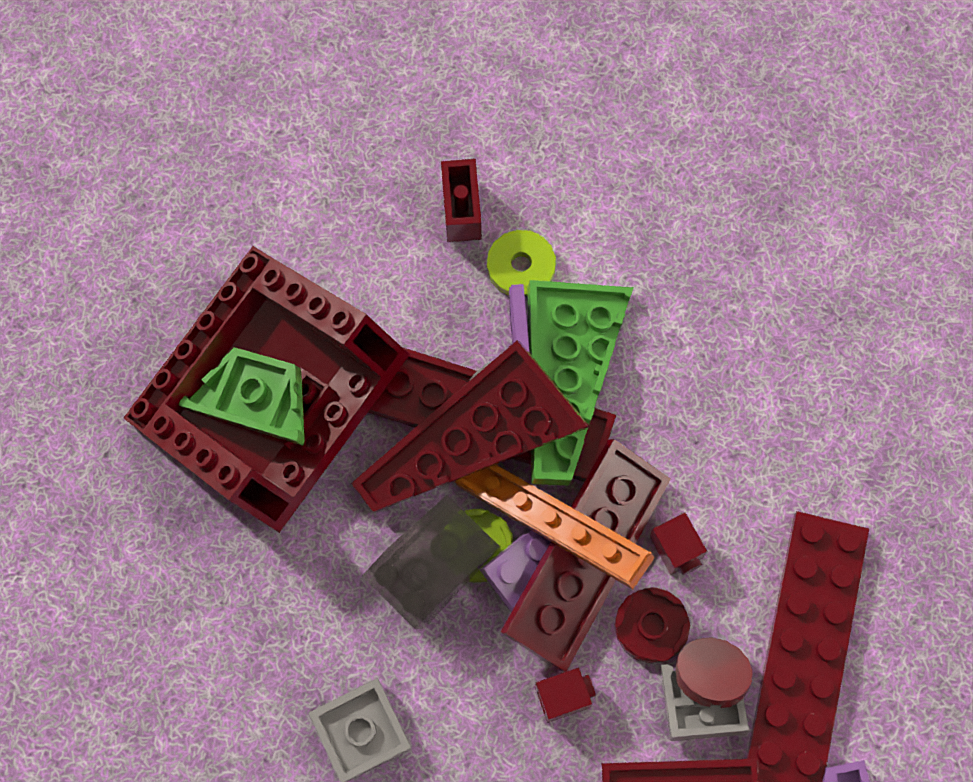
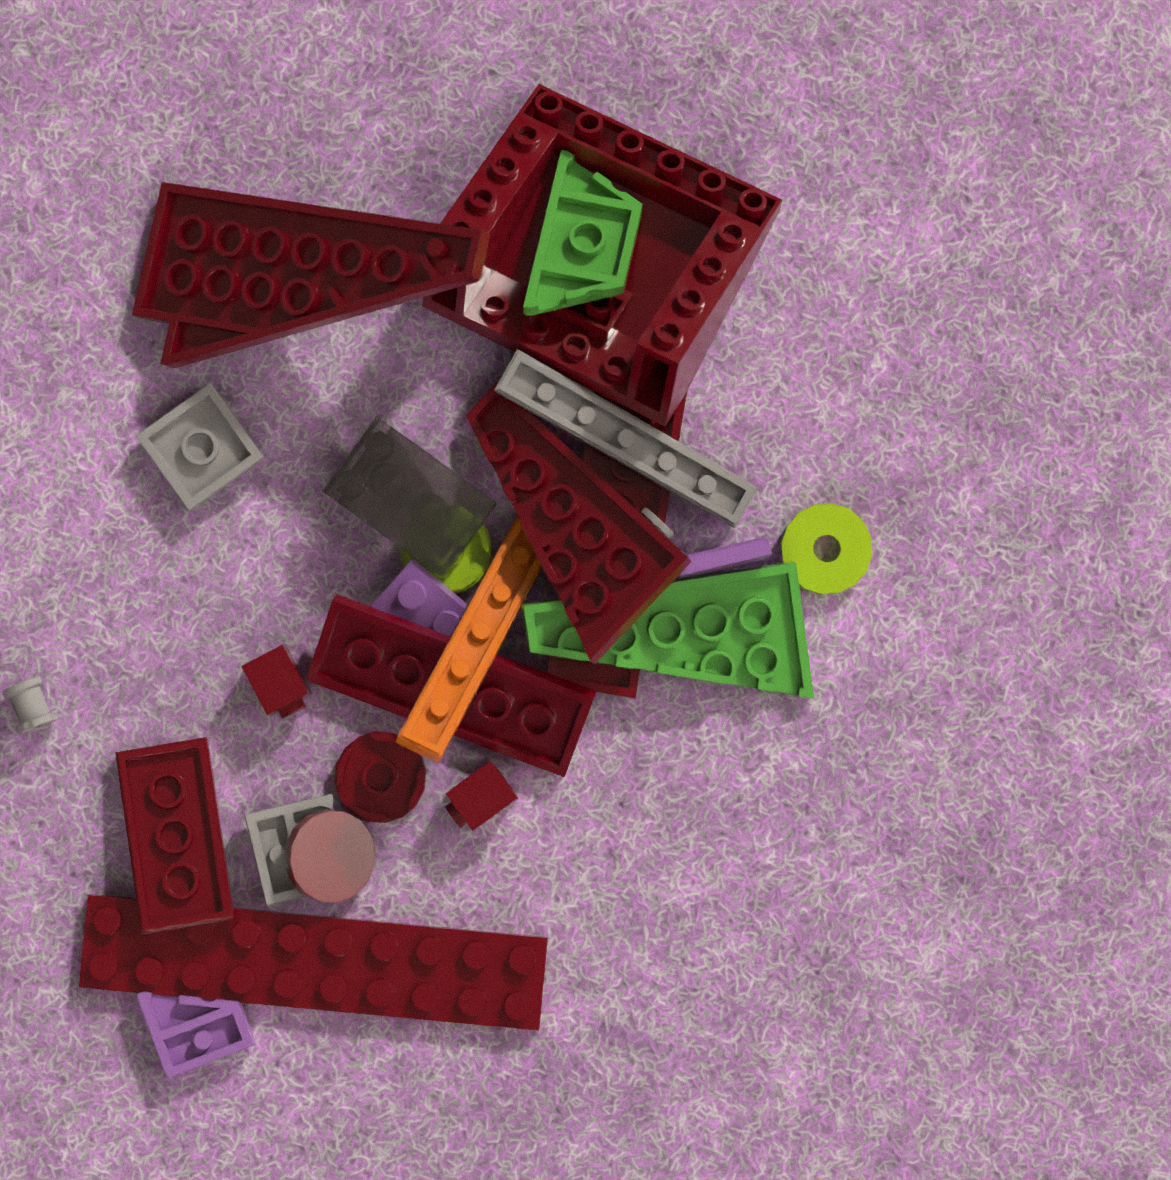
camera: 80 degrees right, 15 degrees up
(224, 646) = (265, 268): none -> dark red wing
(412, 391) = (625, 438): none -> light grey tile
(461, 200) = (894, 456): dark red brick -> none

